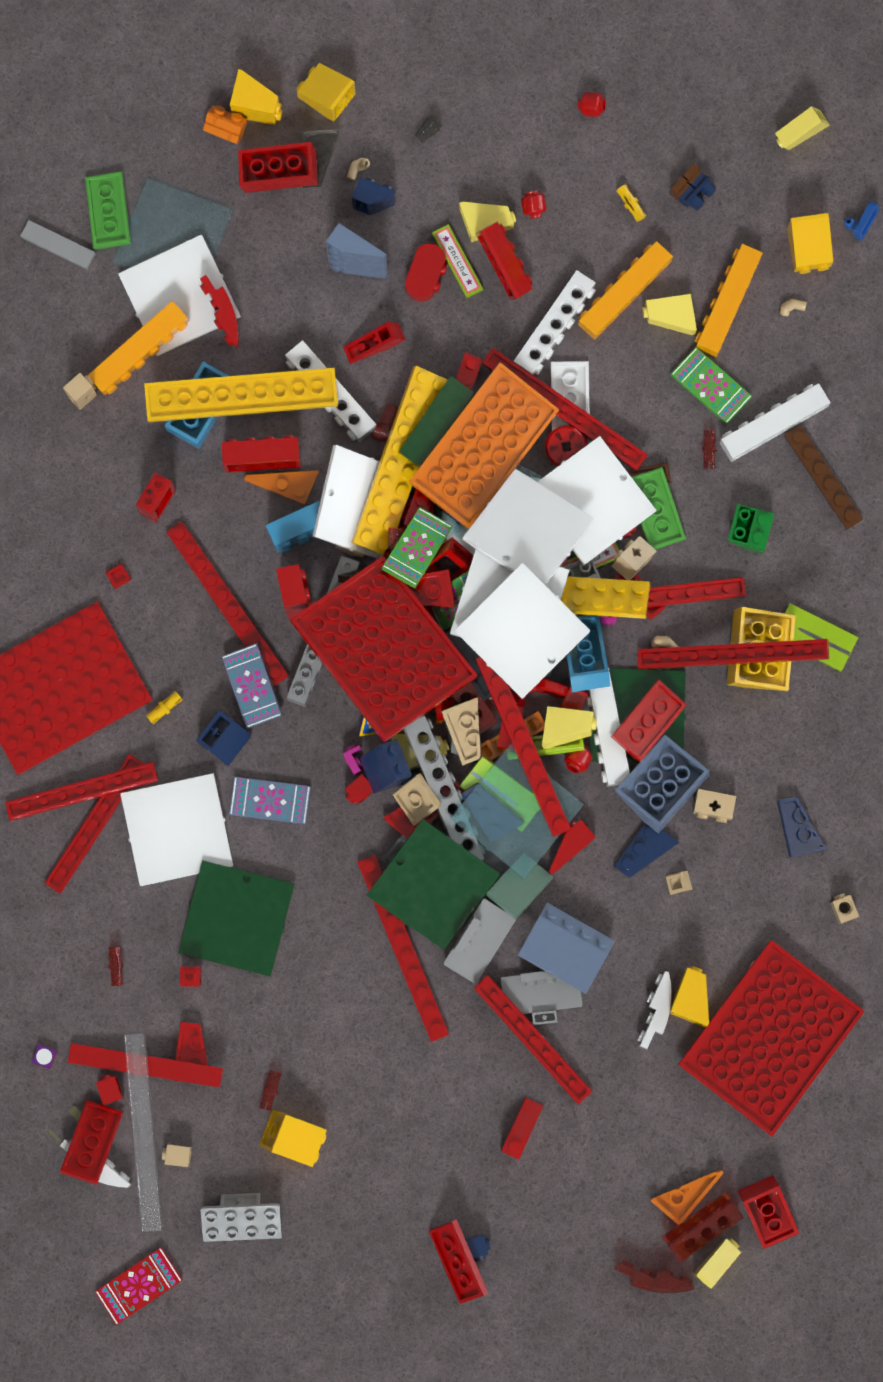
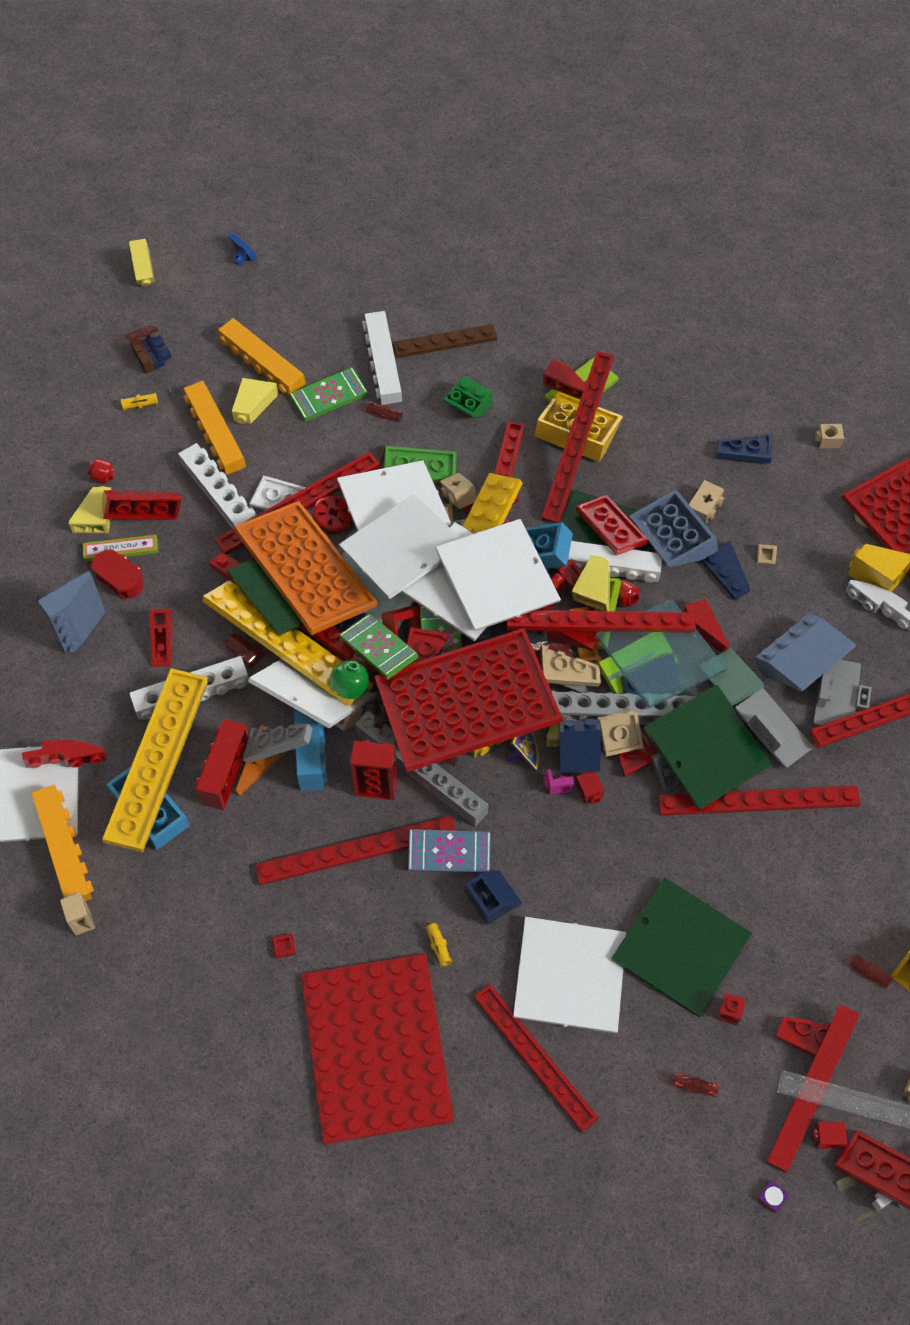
camera: 70 degrees left, 20 degrees down
(81, 791) = (496, 1059): red tile -> none
(154, 503) = (221, 872): red window -> none
(270, 800) = (570, 875): sand blue tile -> none
(294, 491) = (274, 741): none -> light grey wing
(372, 197) = (24, 590): dark blue slope -> none
(372, 534) = (349, 679): none -> green cylinder
(592, 104) = (37, 401): red head -> none
(663, 641) = (541, 496): tan arm -> none
(712, 168) = (142, 332): none -> clear red piece
(792, 304) = (287, 316): tan arm -> none
(810, 243) = (241, 284): yellow slope -> none
(812, 613) = (563, 379): none -> red slope

